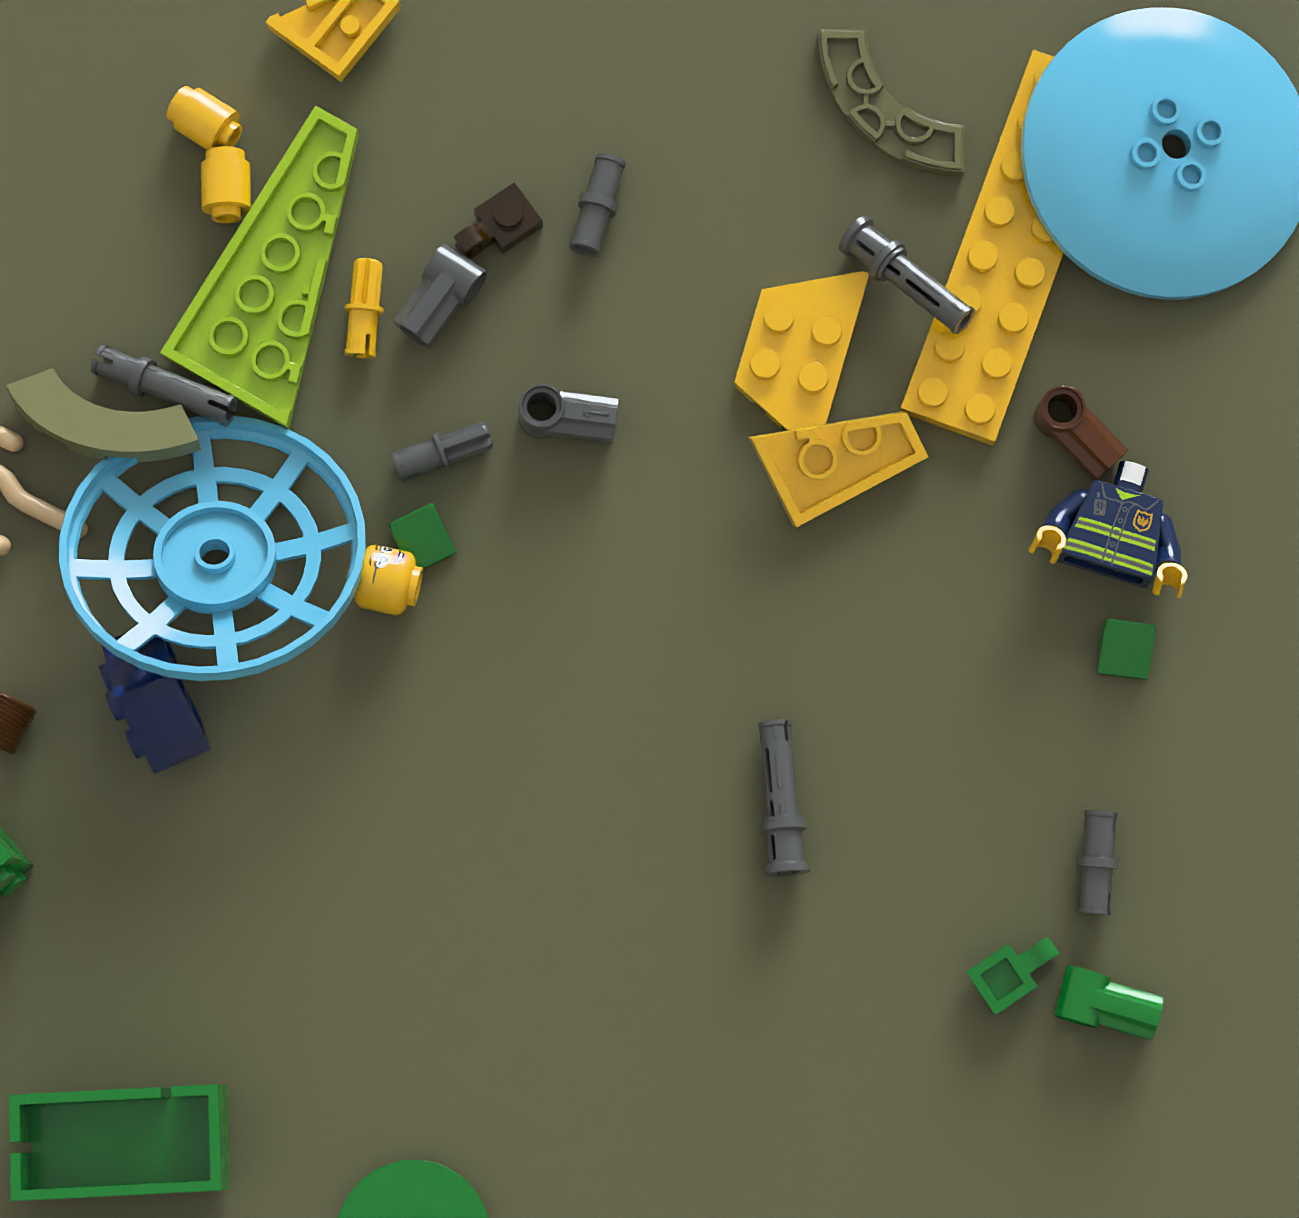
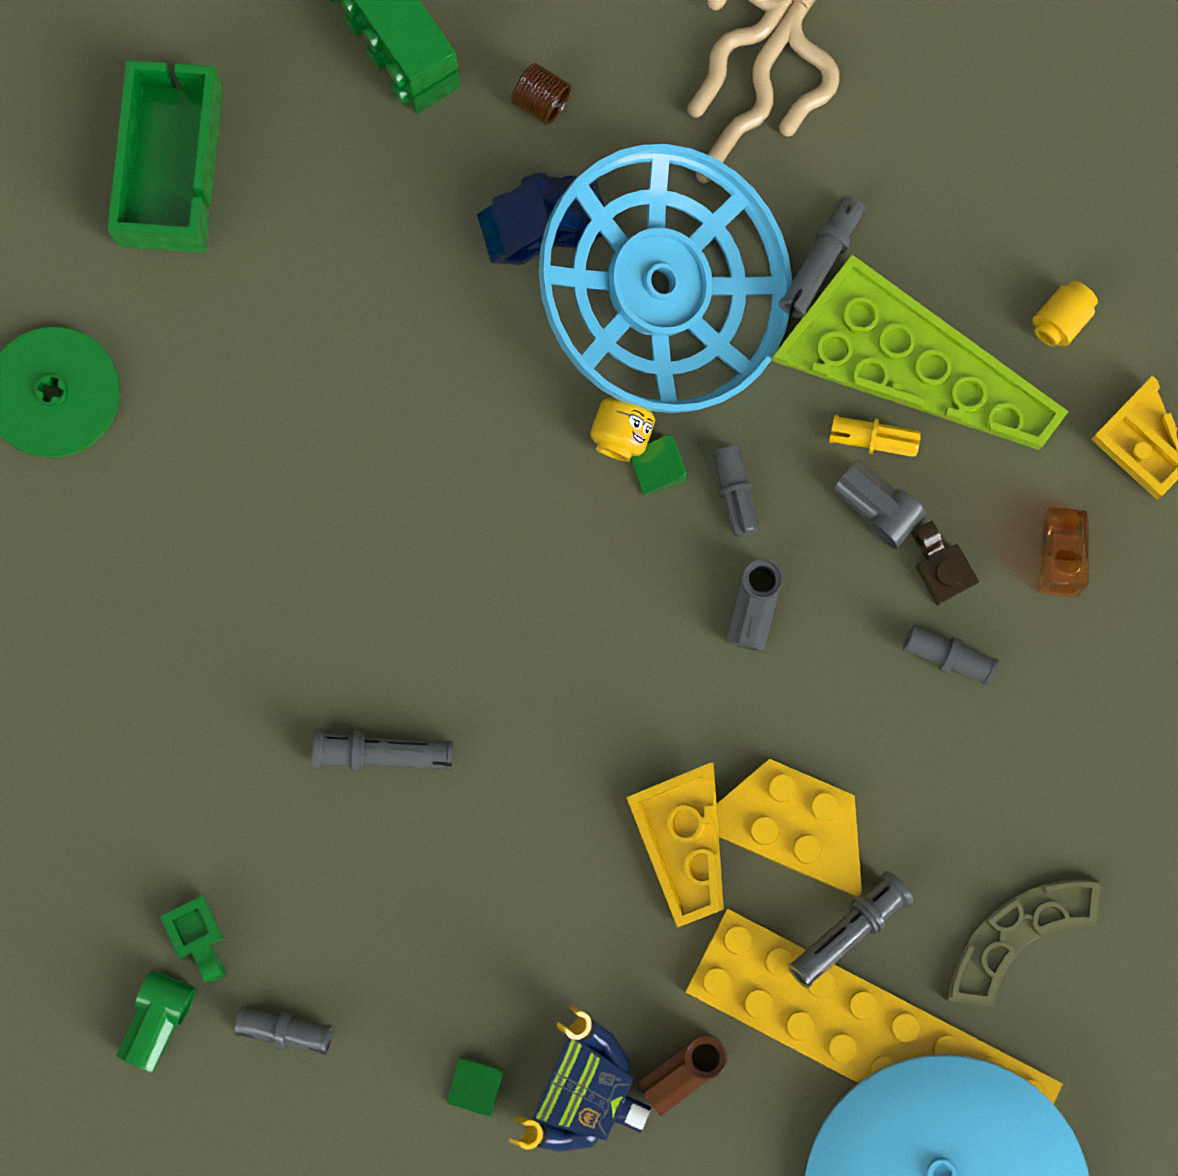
camera: 90 degrees right, 0 degrees up
(99, 430) = (785, 195): olive tile -> none
(225, 184) = (1002, 326): yellow brick -> none
(470, 96) = (1065, 552): none -> clear orange leg

